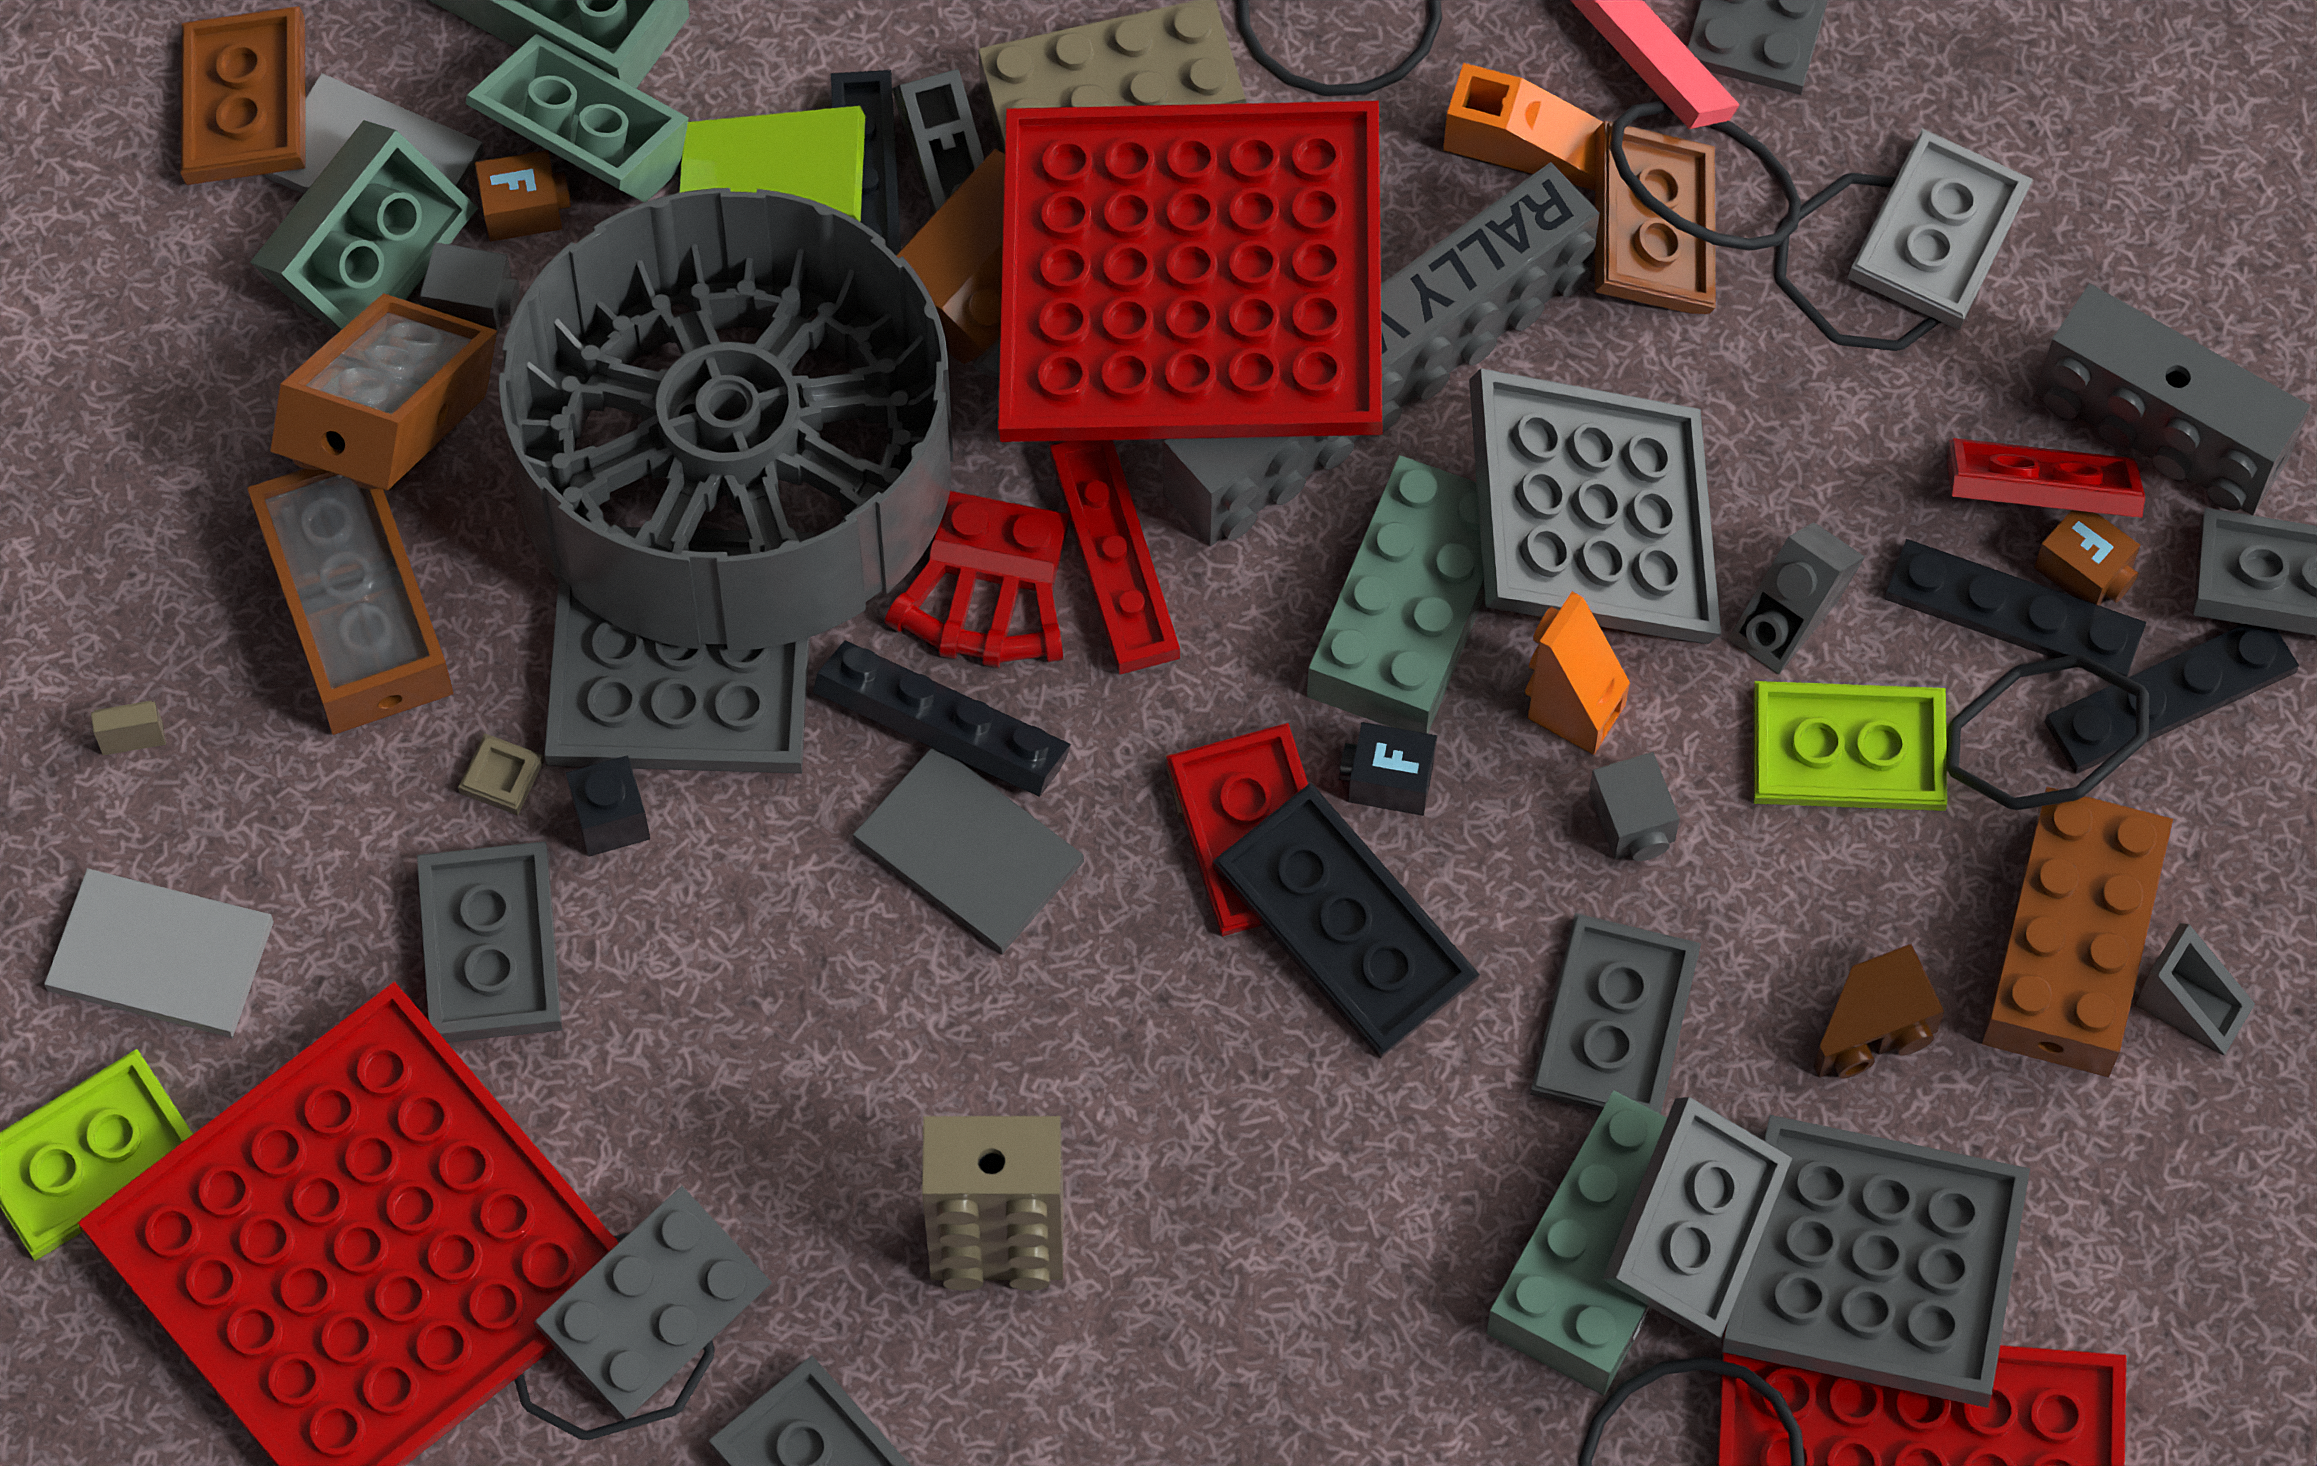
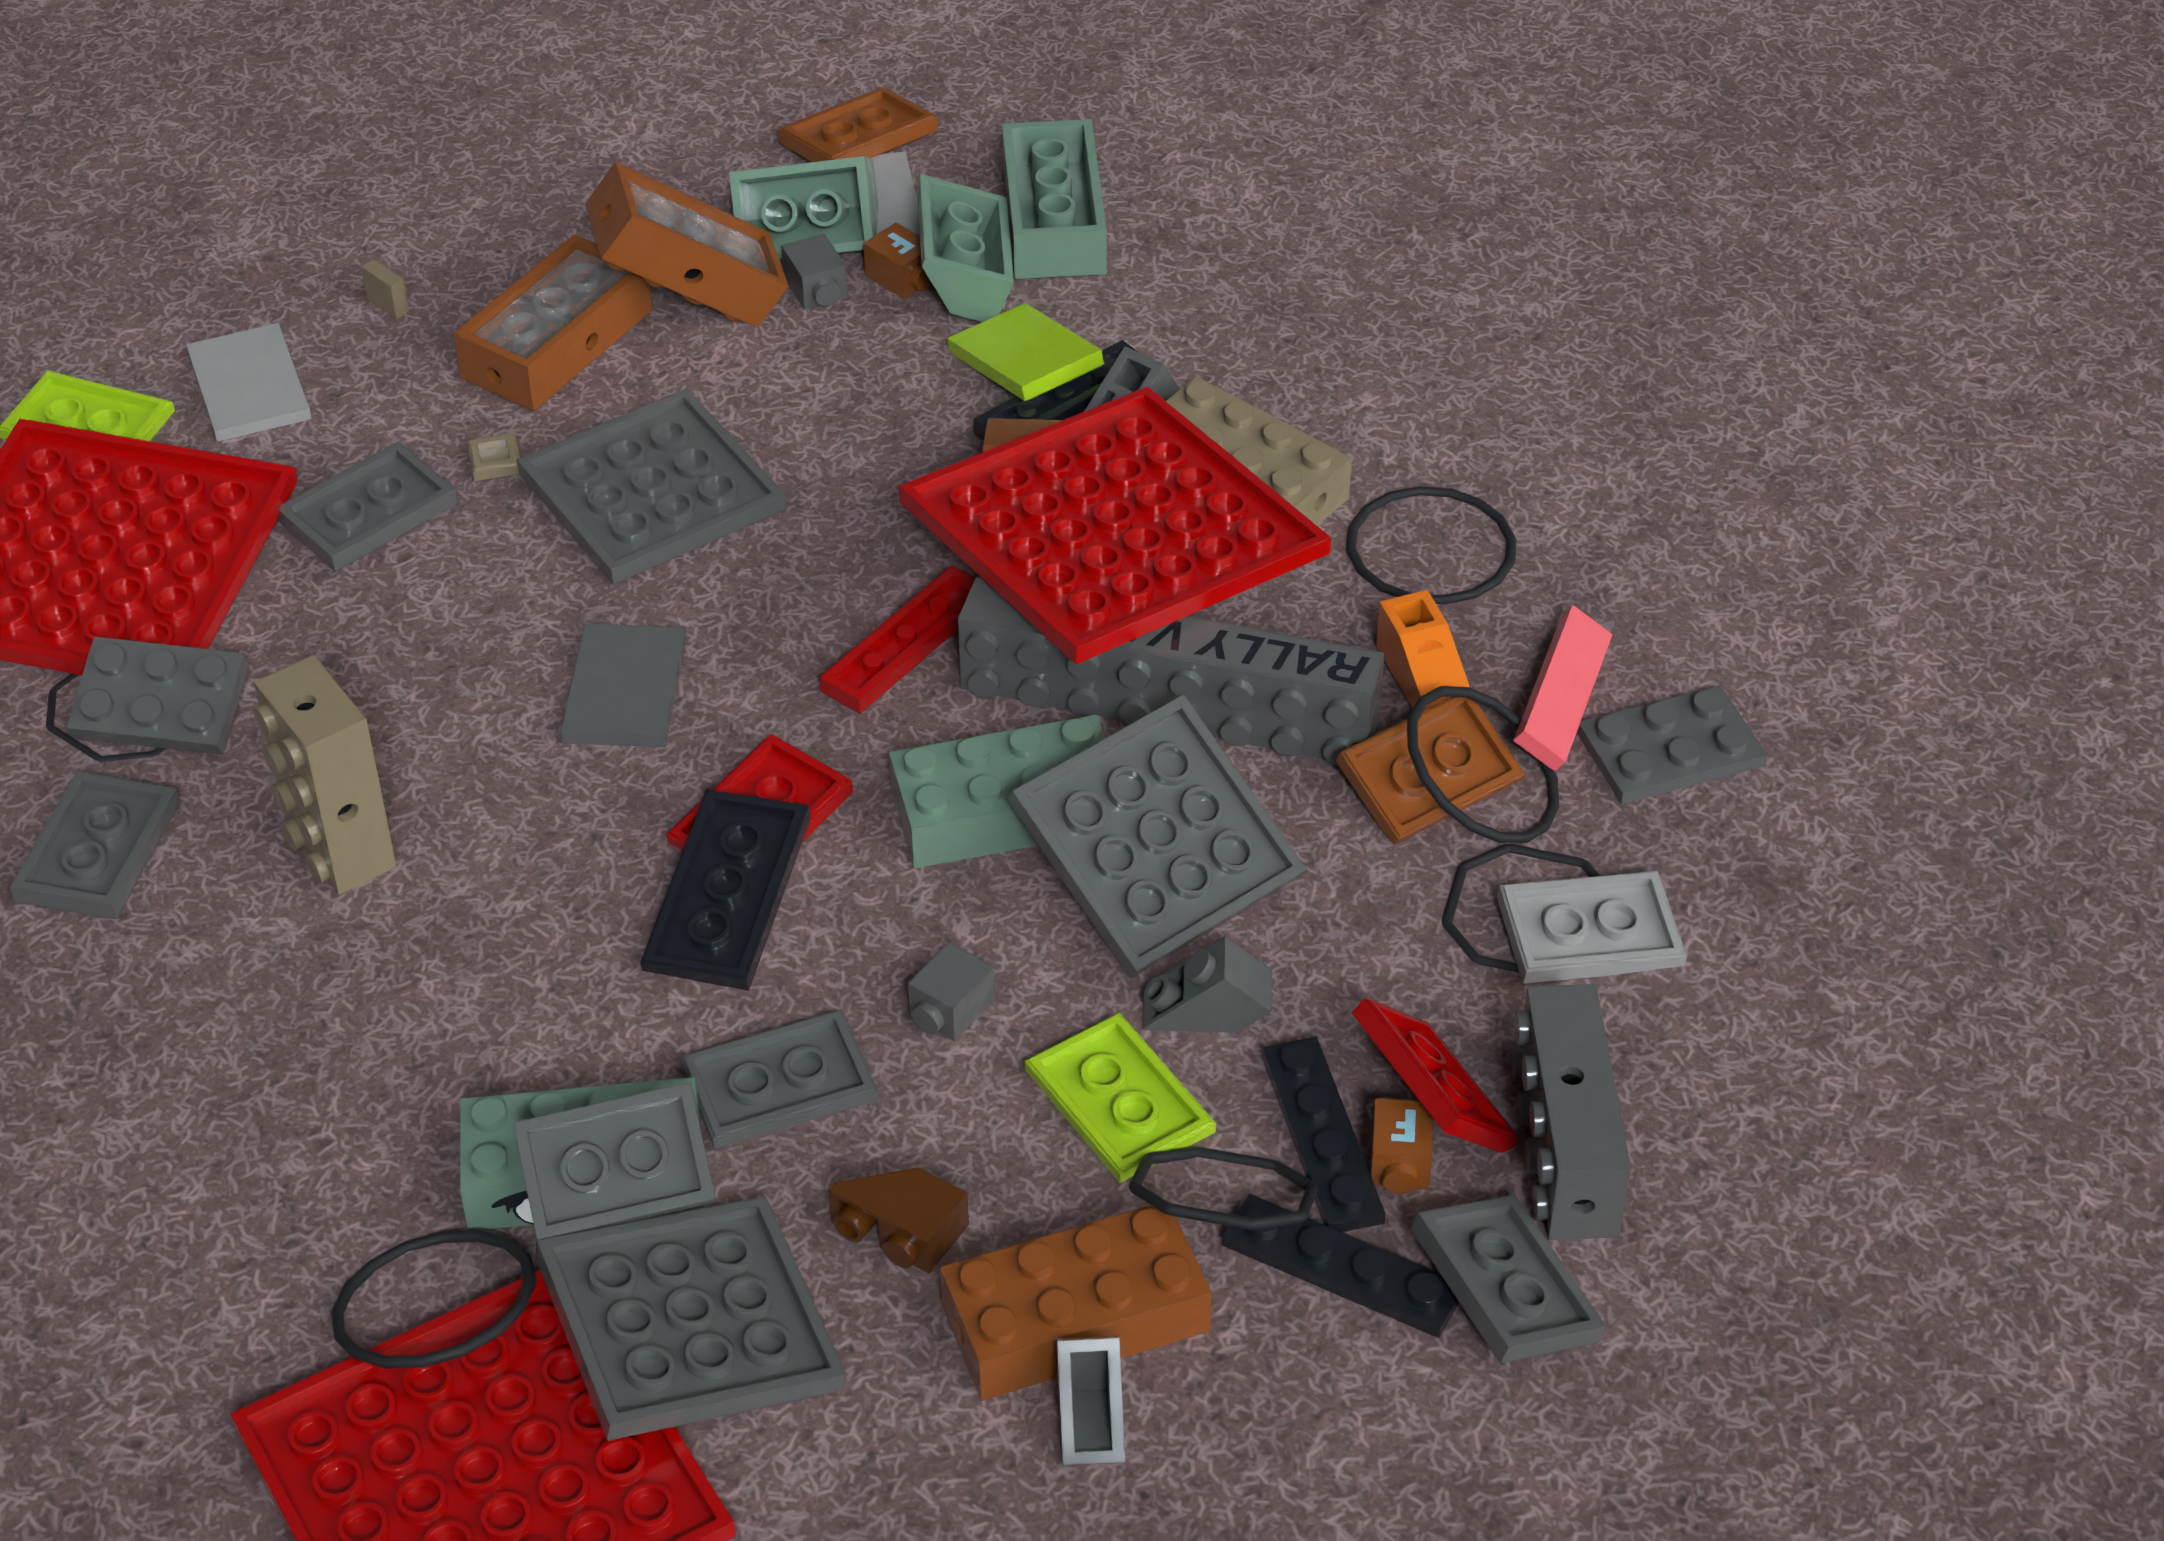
camera: 55 degrees right, 20 degrees down
(608, 805) = (503, 501): black brick -> none
(735, 264) = (815, 351): dark grey wheel -> none
(941, 718) = (706, 622): black plate -> none
(996, 545) = (859, 580): red plate -> none
(1389, 768) = (865, 850): black brick -> none
(1576, 676) = (1007, 881): orange slope -> none

